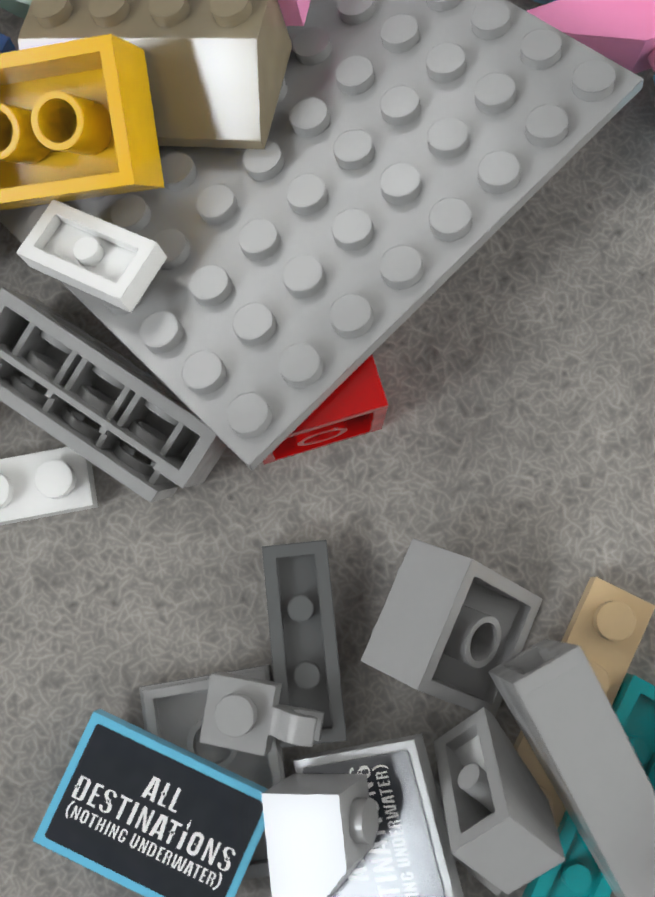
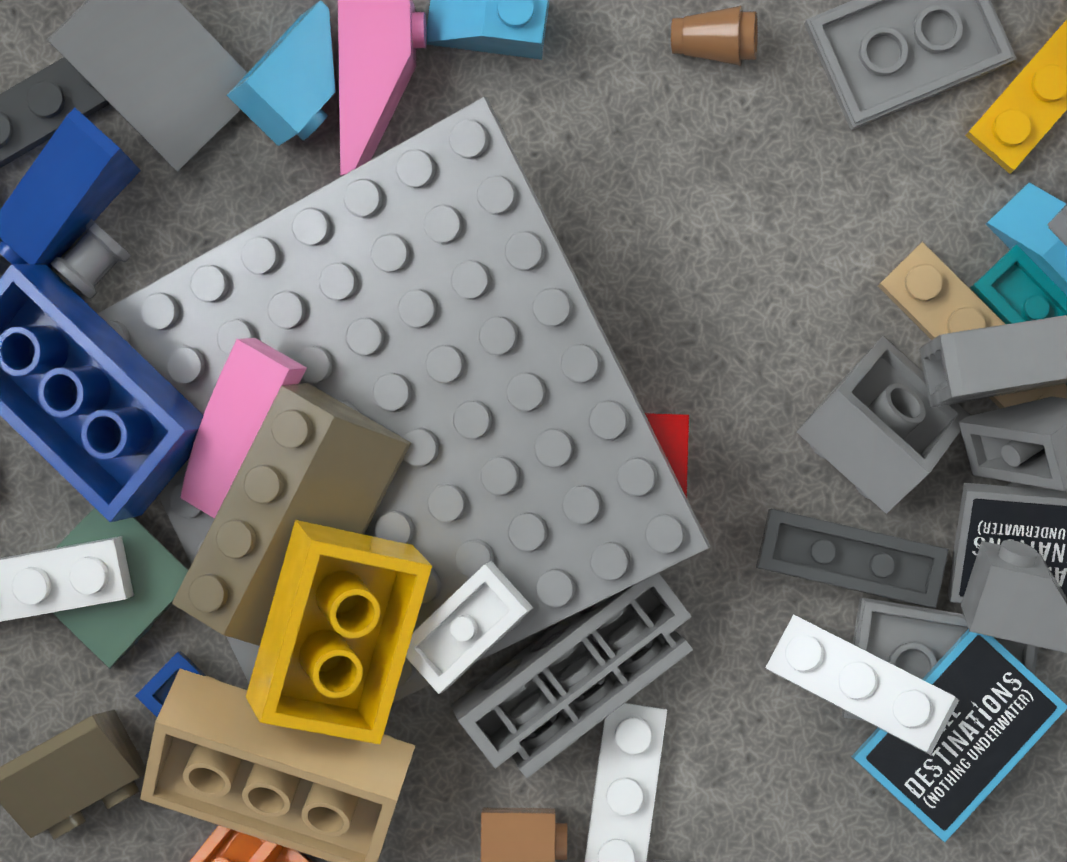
camera: 75 degrees left, 5 degrees up
(171, 699) = (862, 684): none -> white plate
(247, 714) = (900, 626): light grey plate -> none

